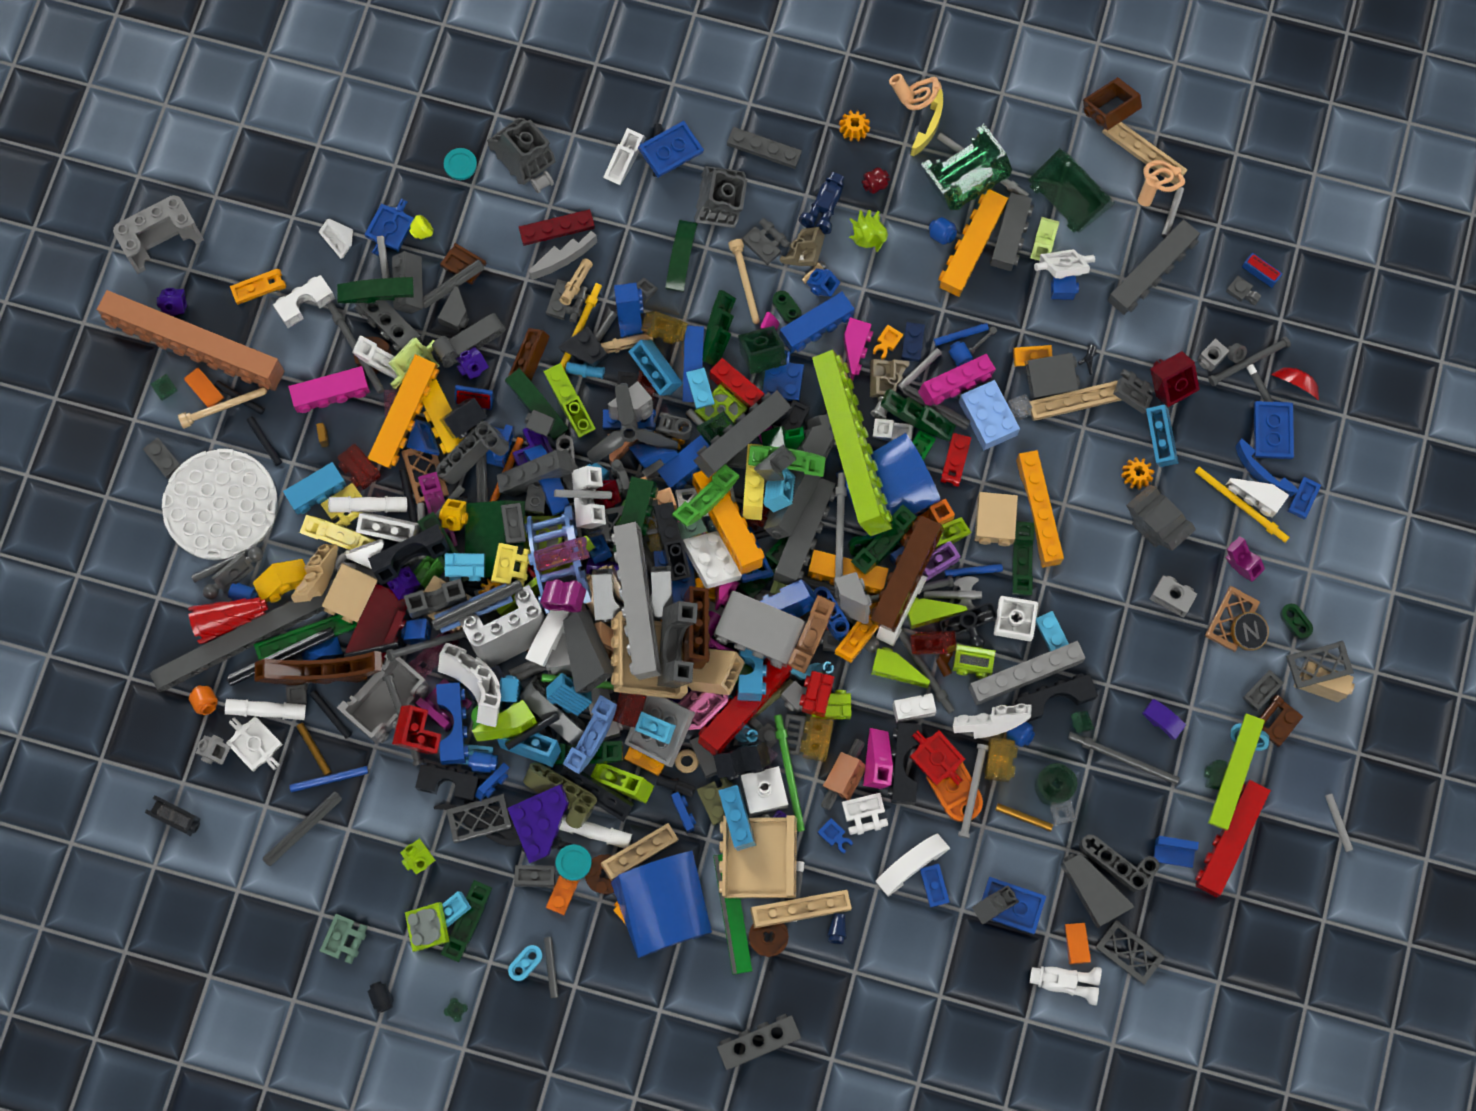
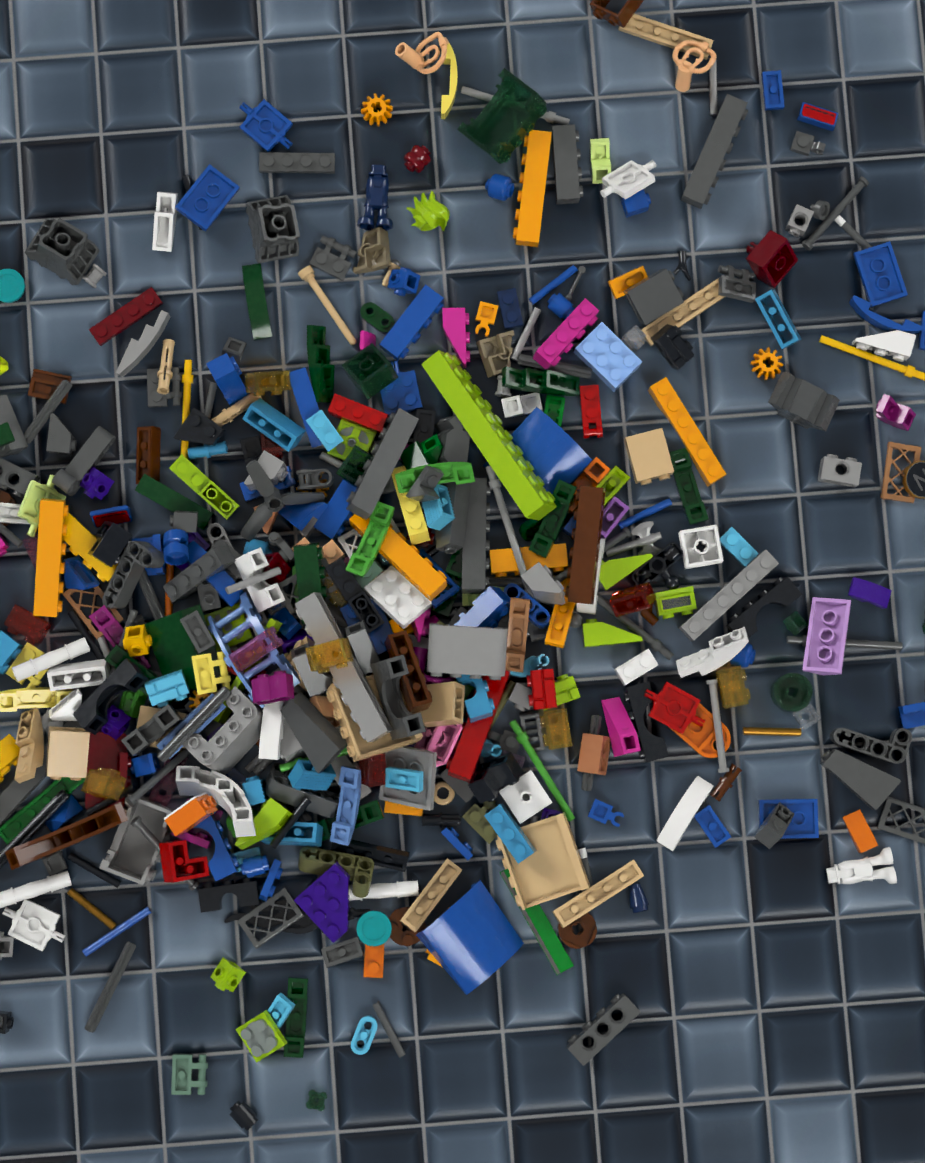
camera: 20 degrees left, 10 degrees up
(372, 632) = (104, 783): none -> clear yellow brick
(442, 686) = (191, 813): none -> orange piece
(522, 442) = (176, 547): none -> blue wheel
(623, 782) = (391, 835): lime slope -> none
(628, 581) = (329, 655): none -> clear yellow brick
(748, 106) = (266, 125): none -> blue plate
(864, 807) = (622, 777): white plate -> none
(962, 848) = (725, 782): none -> reddish brown pin
(1053, 425) = (672, 346): none -> black brick
(1070, 190) = (609, 102): clear green windscreen -> none
(1108, 743) = (826, 636): none -> lavender slope
(1227, 232) = (772, 90): none -> blue plate
(1299, 379) = (887, 216): red piece -> none

